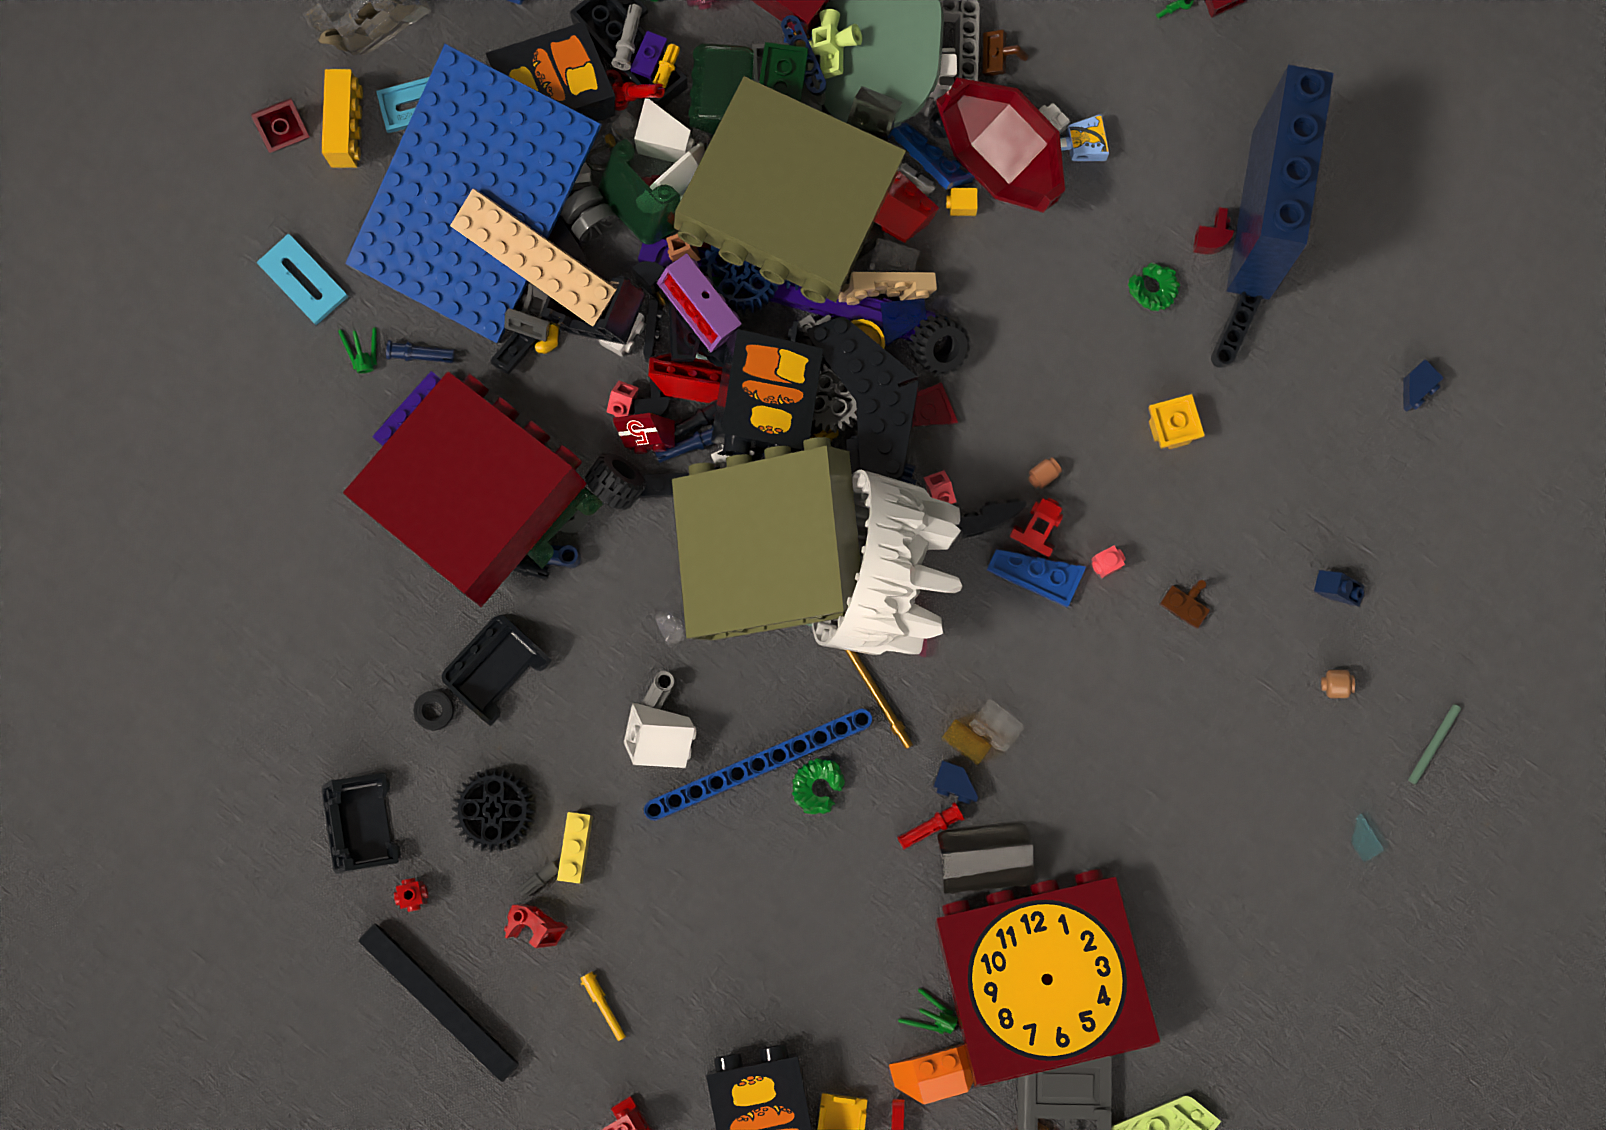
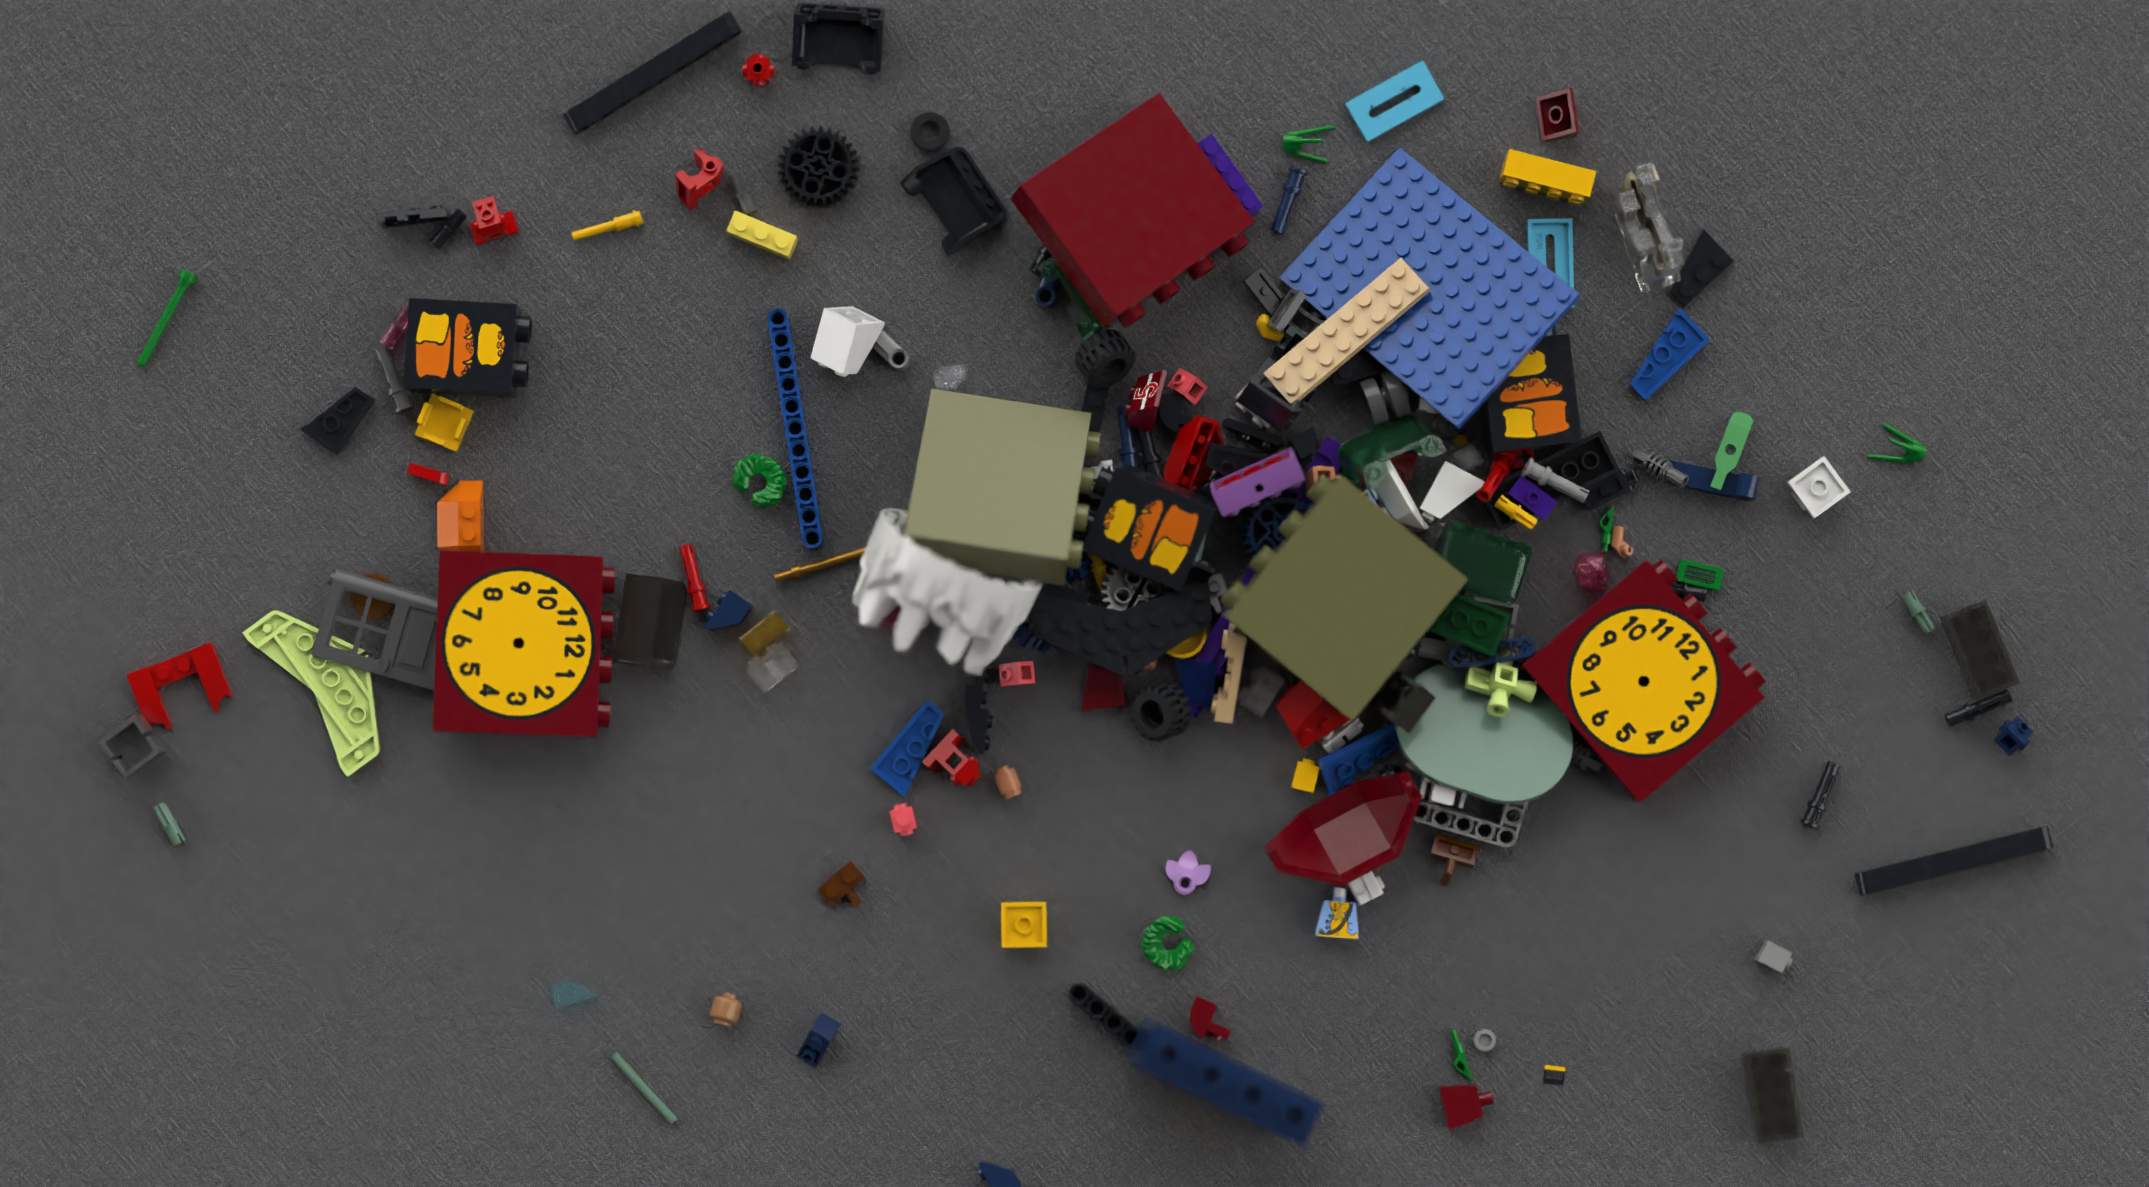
camera: 105 degrees right, 5 degrees up
(945, 1021) = (507, 541): green plant -> none
(1079, 287) = (1188, 869): none -> lavender plate

